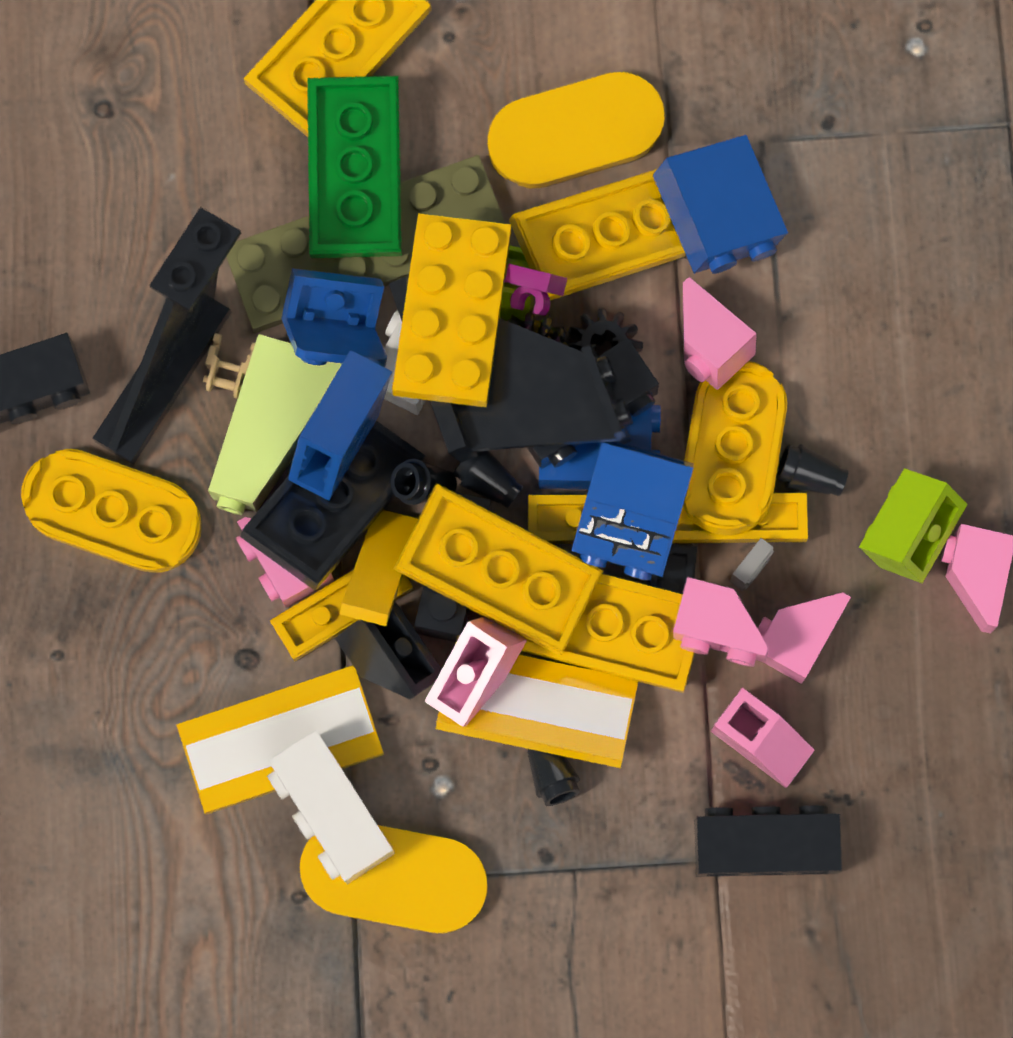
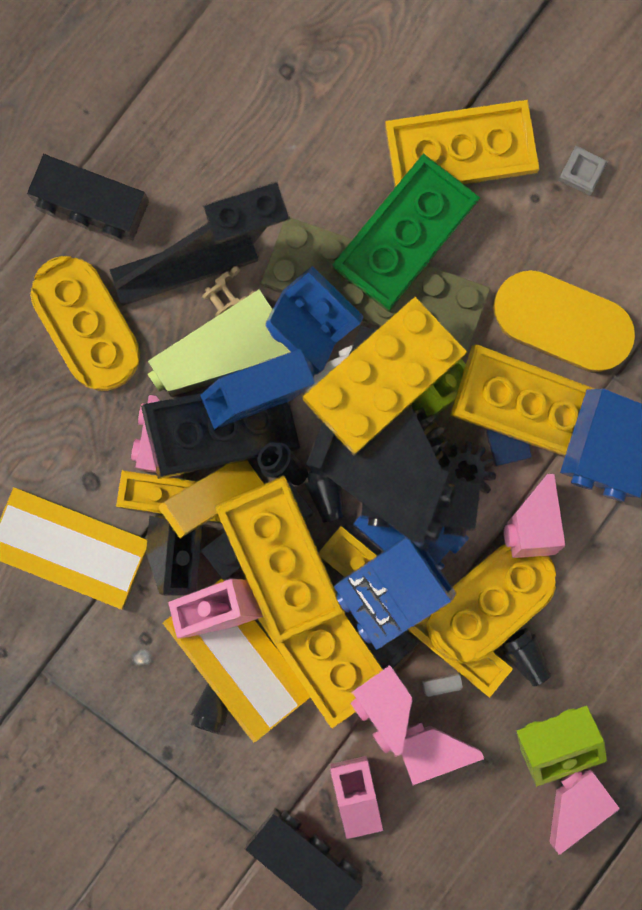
camera: 40 degrees right, 5 degrees up
(329, 808) = (57, 619): white brick -> none
(423, 887) = (65, 689): yellow tile -> none
(533, 283) = (452, 400): magenta tile -> none
(624, 293) = (507, 449): none -> dark blue tile

